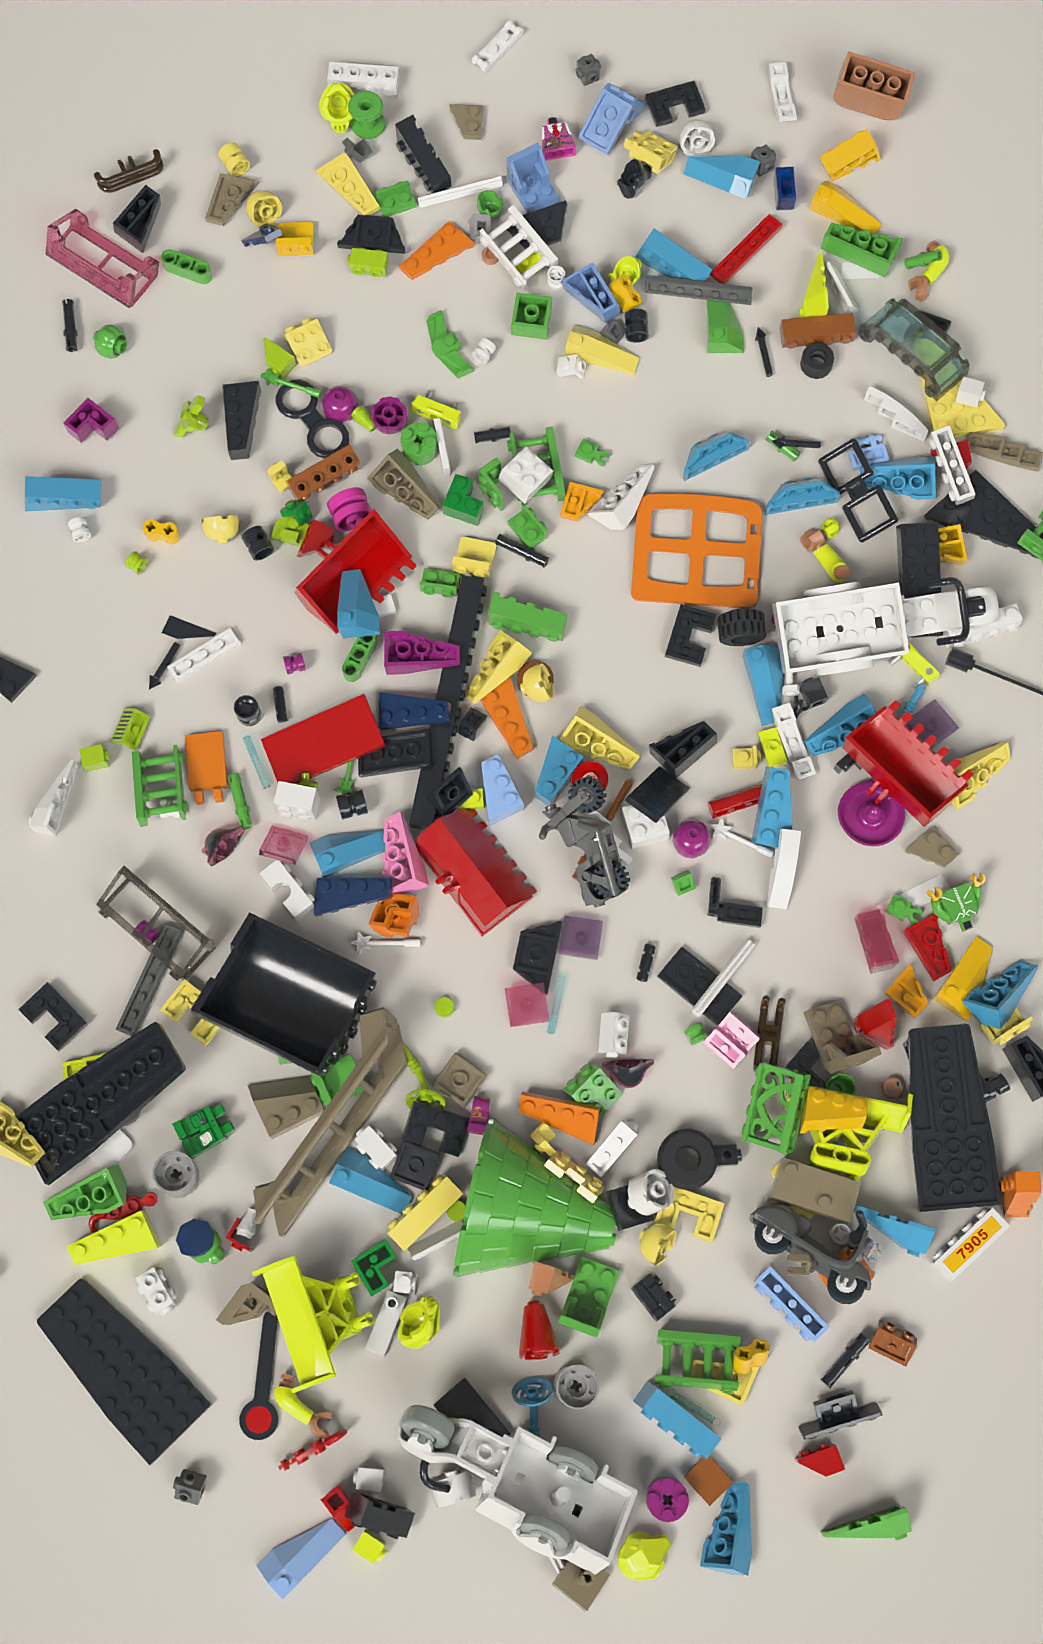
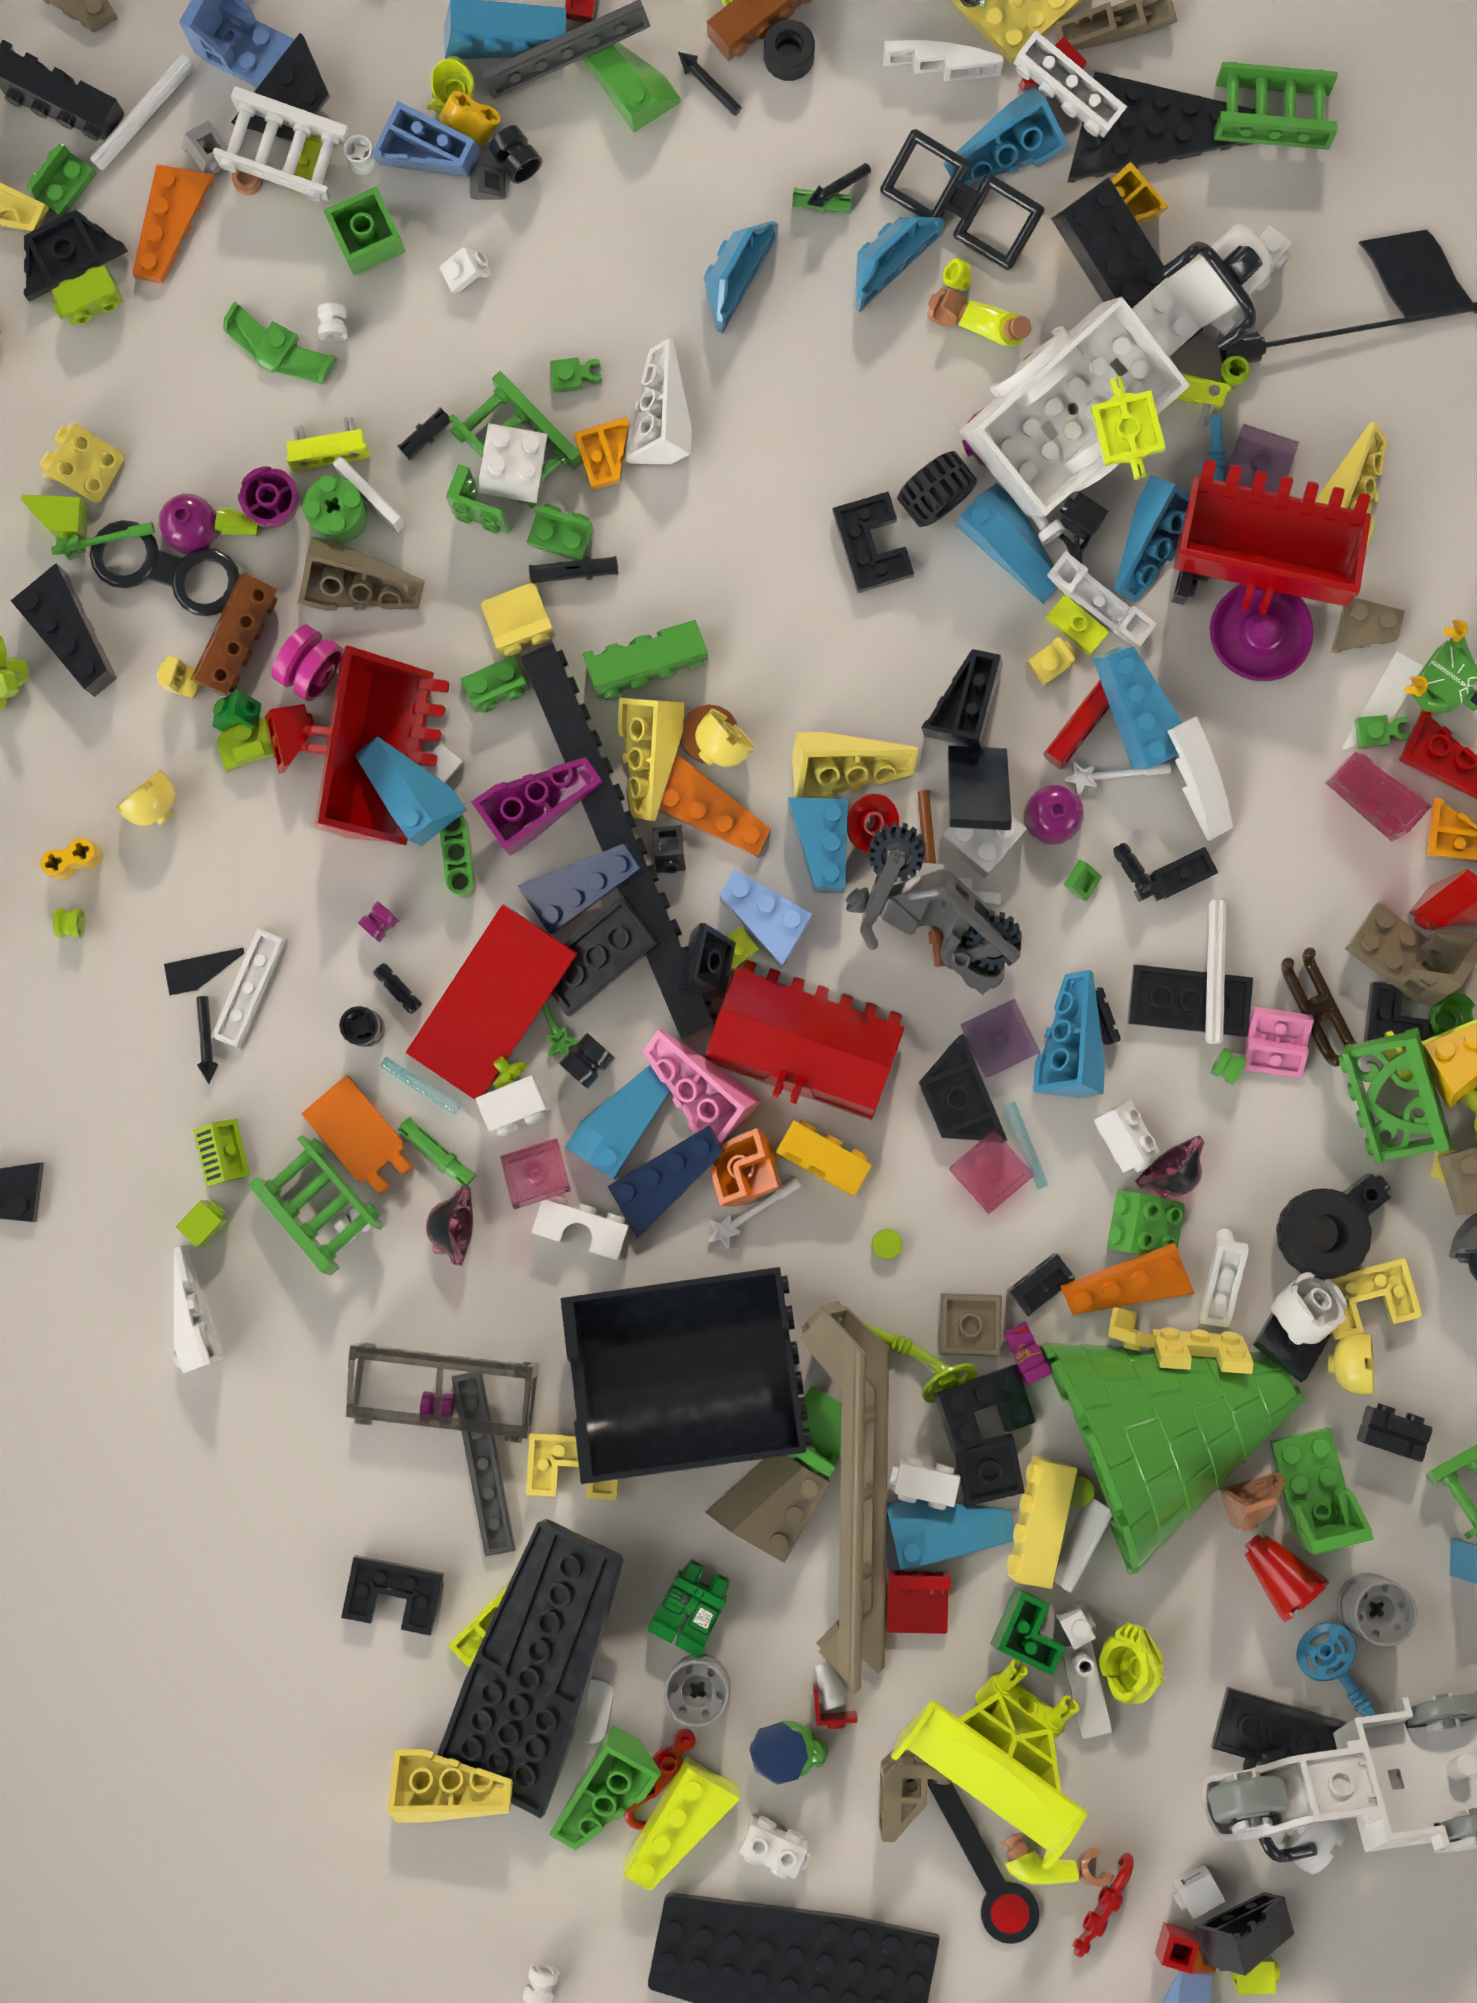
camera: 30 degrees left, 10 degrees up
(257, 542) = (210, 788): black wheel -> none
(327, 1211) = (917, 1601): none -> red bracket
(441, 936) = (824, 1157): none -> yellow wedge
(459, 503) = (446, 559): green brick -> none
(489, 203) = (196, 104): bright green hair -> none
(512, 1084) = (1041, 1284): none -> black hinge
(599, 350) = (489, 221): light yellow wedge -> none
(615, 972) = (1074, 1049): none -> dark azure wedge
(697, 549) = (803, 418): orange window -> none
(859, 653) = (1128, 428): none -> neon yellow plate
(874, 453) = (950, 132): light blue plate -> none
(946, 668) = (1234, 371): none -> lime cone

